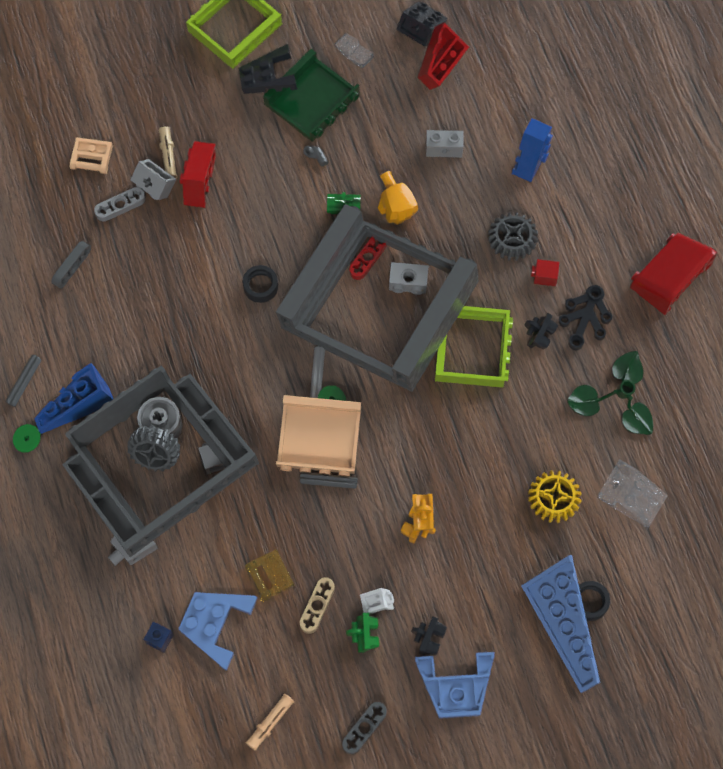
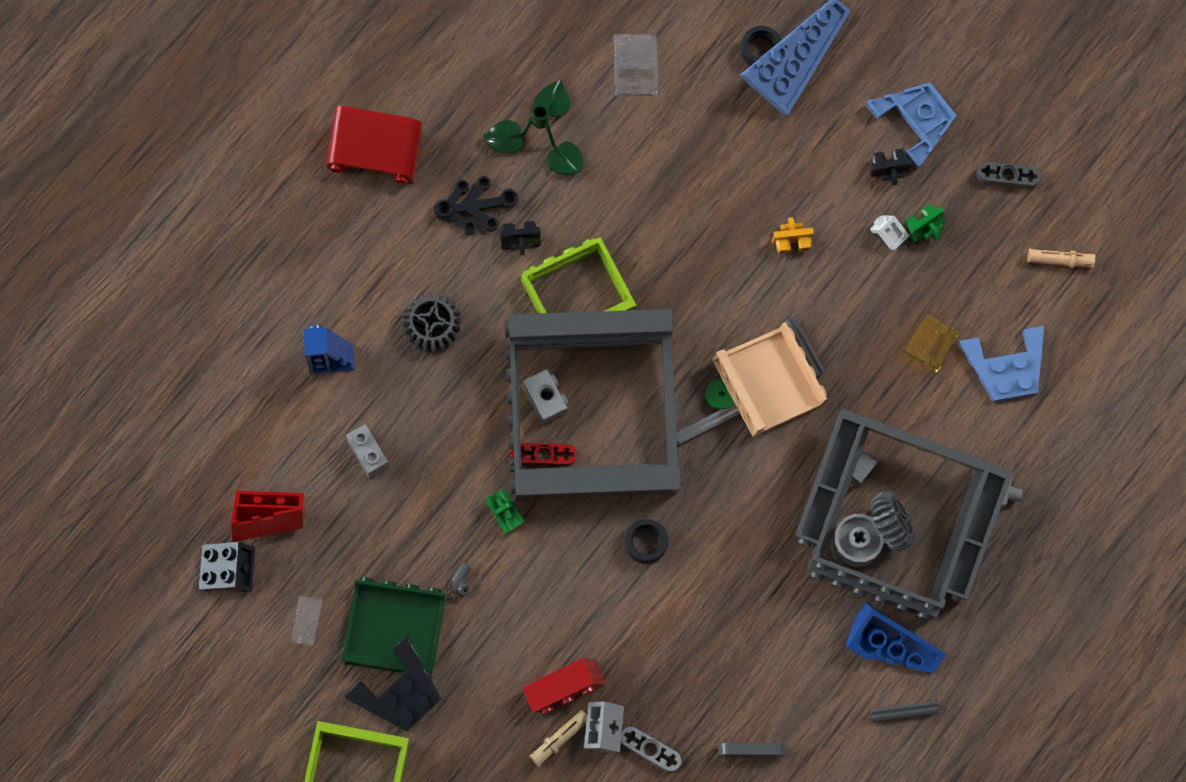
camera: 130 degrees left, 5 degrees up
(26, 438) = (959, 664): green piece -> none
(158, 637) = (1059, 403): dark blue brick -> none
(316, 621) = (912, 280): tan beam -> none
(396, 200) = (466, 459): light orange piece -> none
(423, 512) = (787, 228): light orange hips -> none
(545, 272) = (452, 267): red brick -> none
(562, 497) = (698, 123): yellow gear -> none

